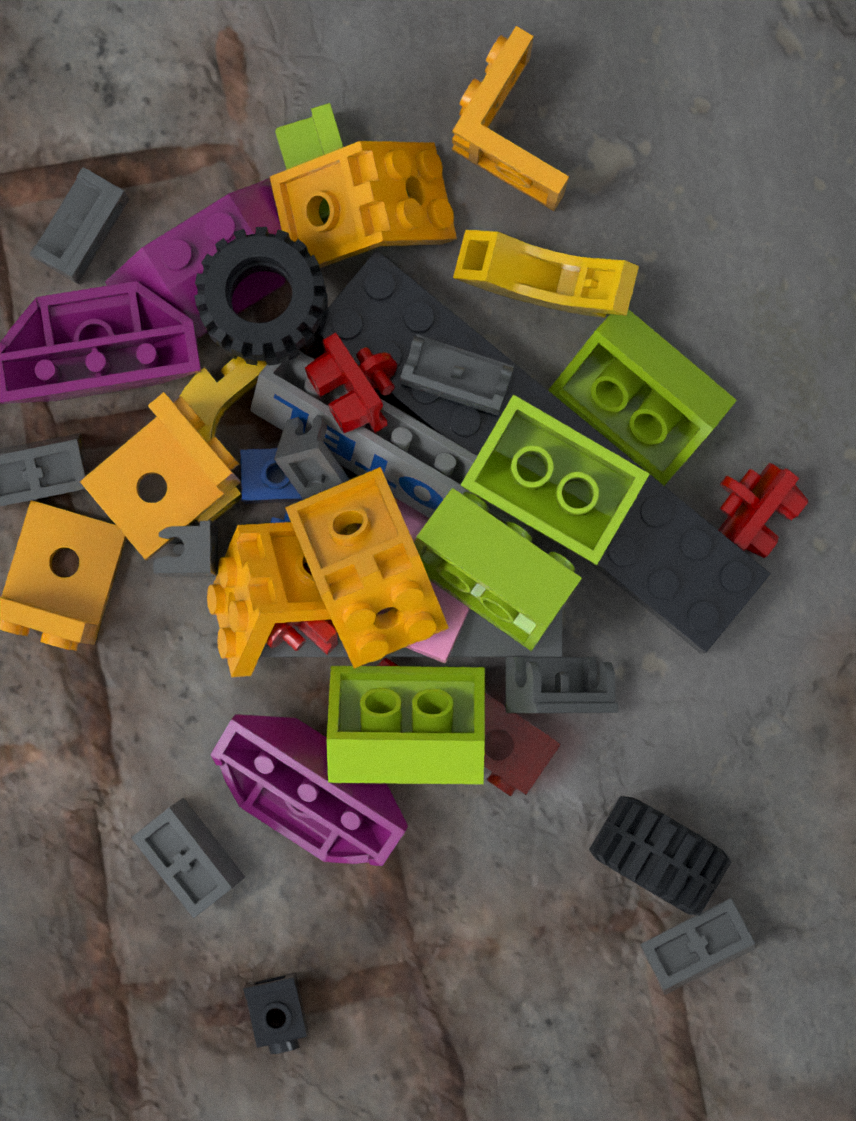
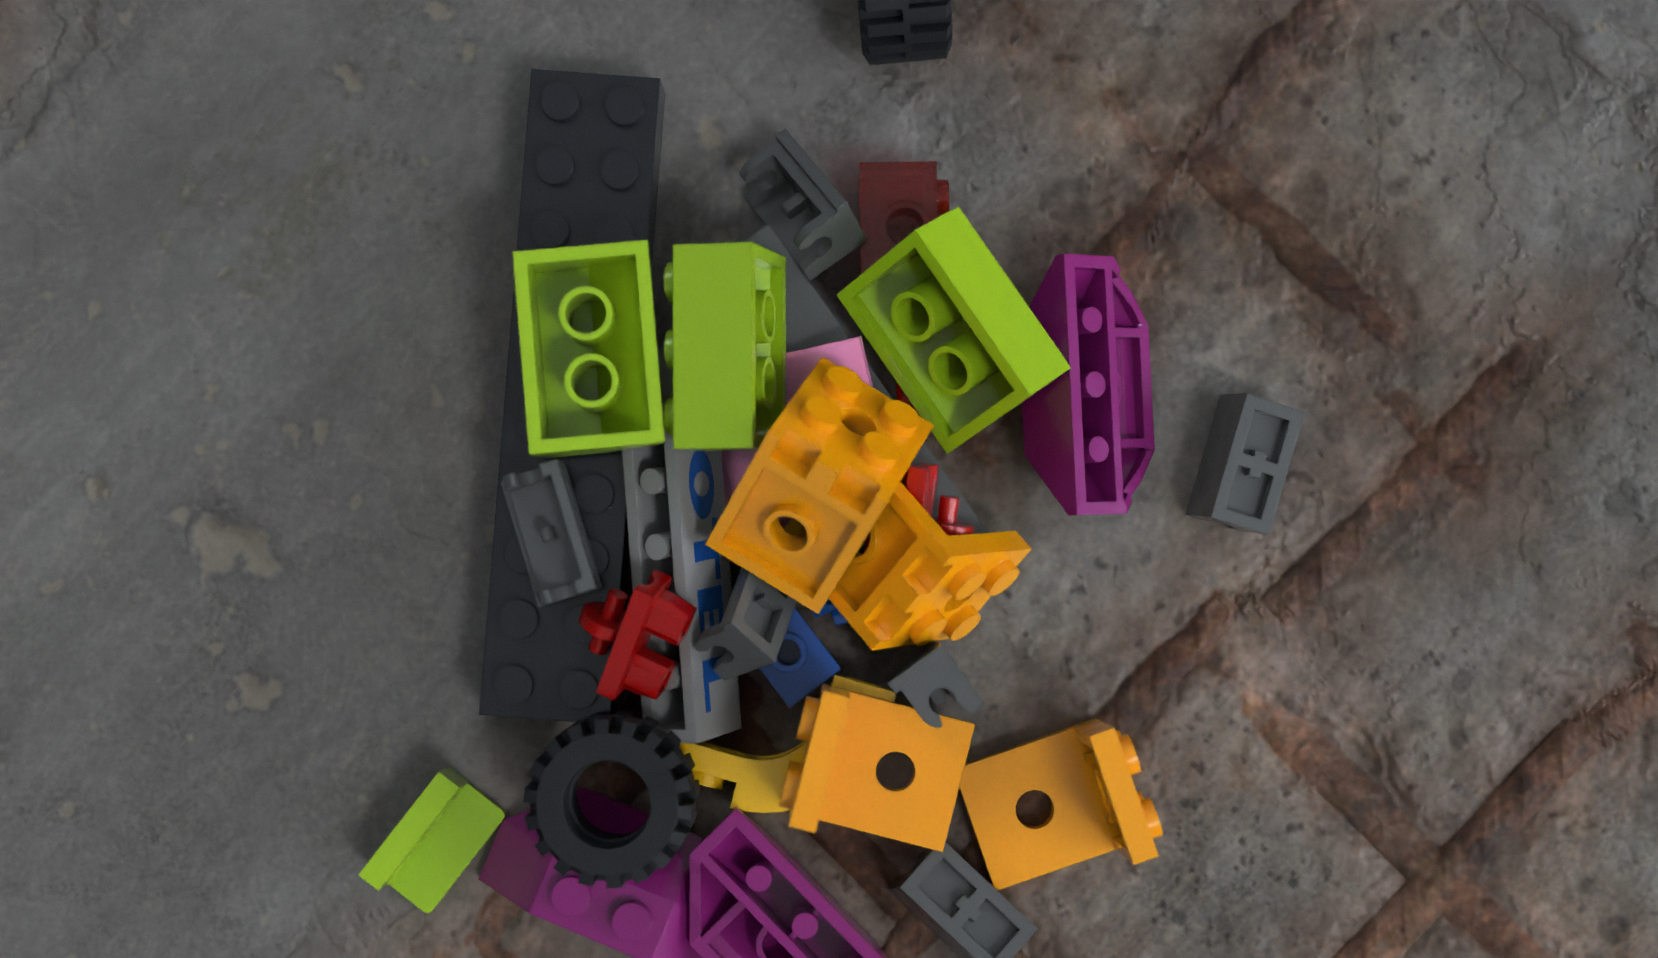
camera: 130 degrees left, 0 degrees up
(279, 993) = (1315, 272): black brick -> none
(366, 199) = (421, 755): light orange bracket -> none
(490, 150) = (289, 670): light orange bracket -> none
(545, 276) = (385, 516): yellow arch -> none
(642, 395) = (437, 334): lime slope -> none
(754, 502) = (471, 140): red hips -> none

